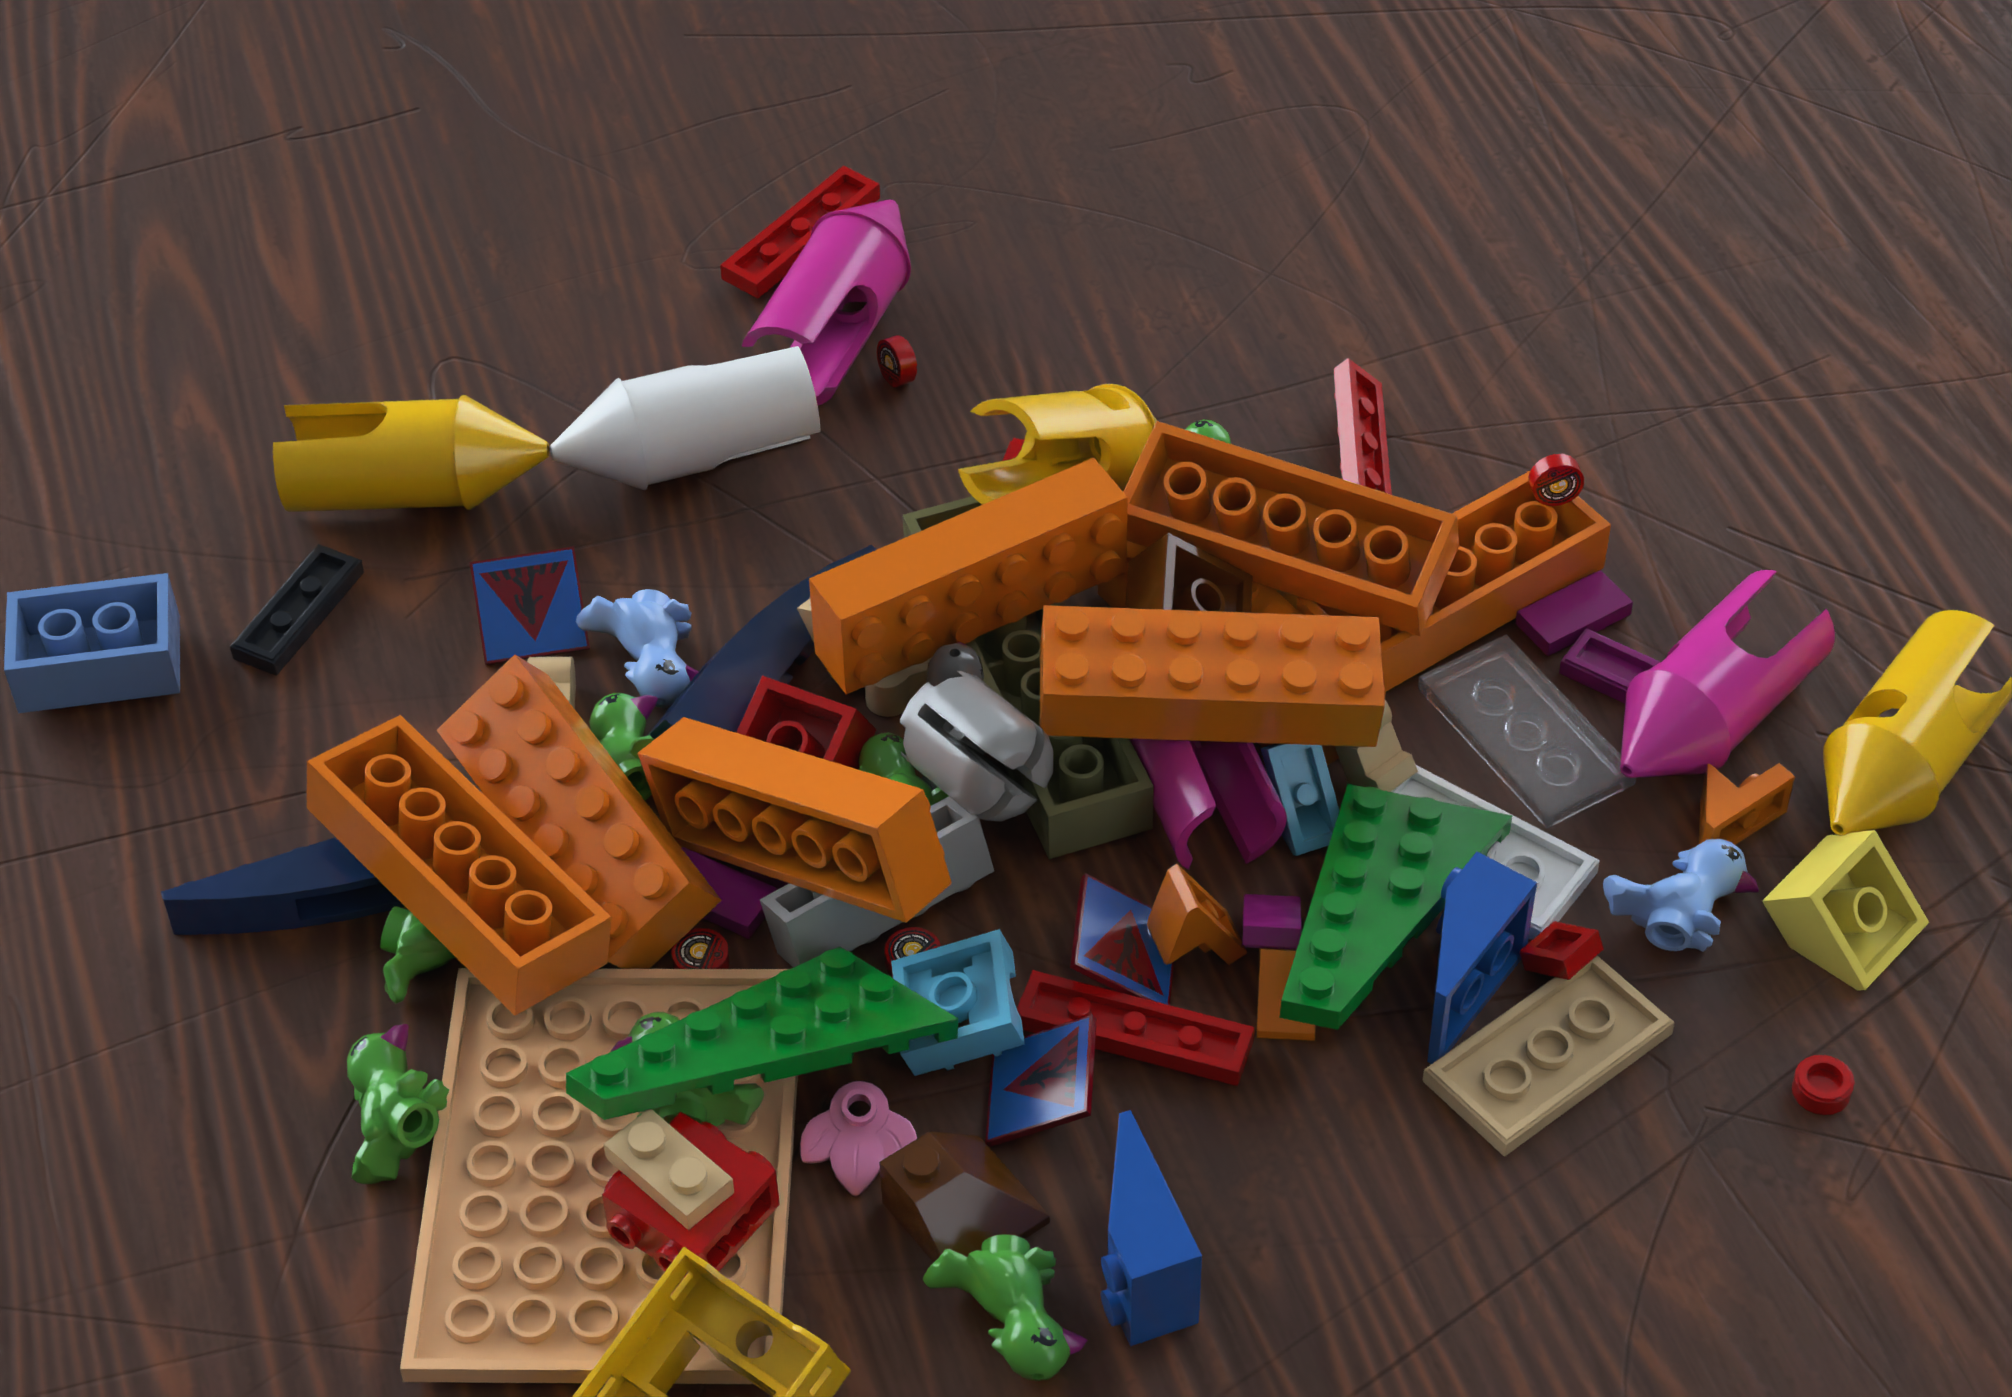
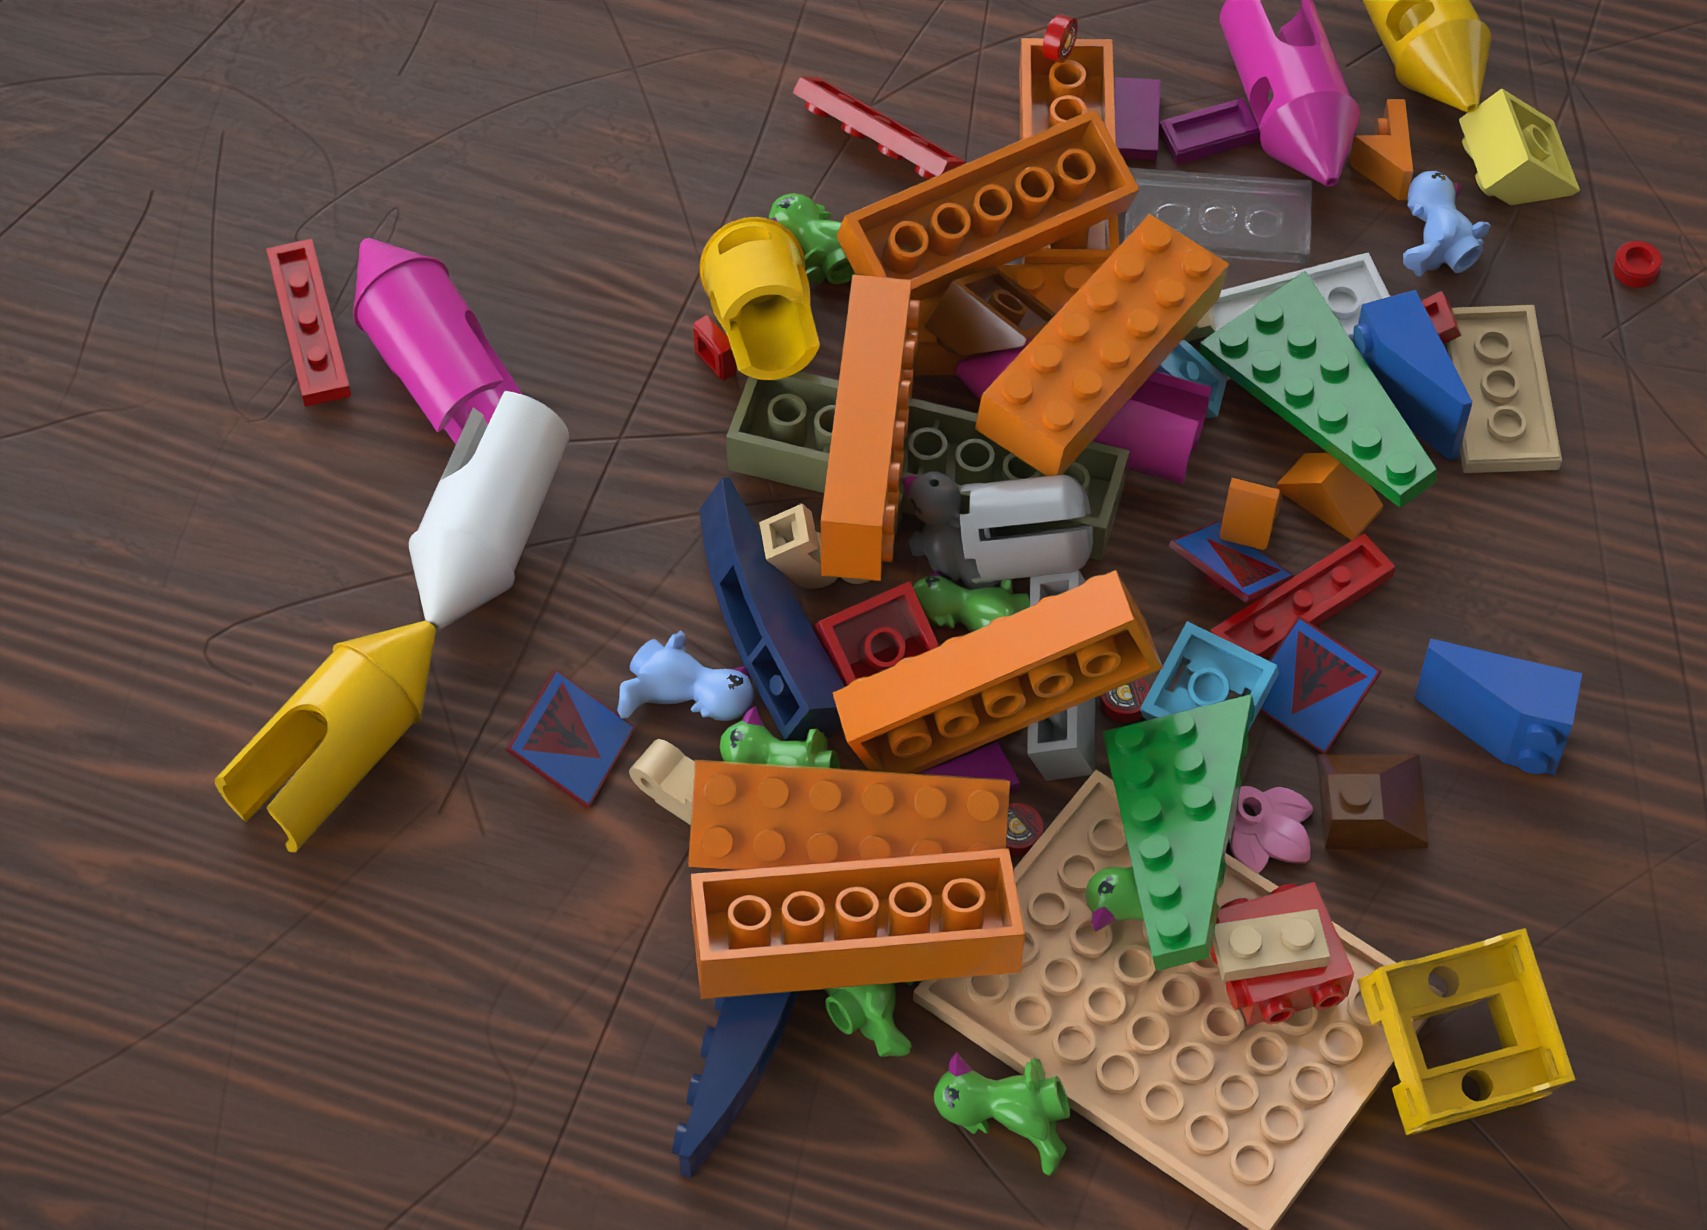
camera: 55 degrees left, 10 degrees up
(92, 643) = (341, 1068): medium blue brick -> none
(297, 609) = (411, 905): black tile -> none
(896, 360) = (520, 347): red tile -> none
(1009, 1285) = (1478, 812): bright green animal -> none
(1271, 921) = (1285, 463): magenta tile -> none

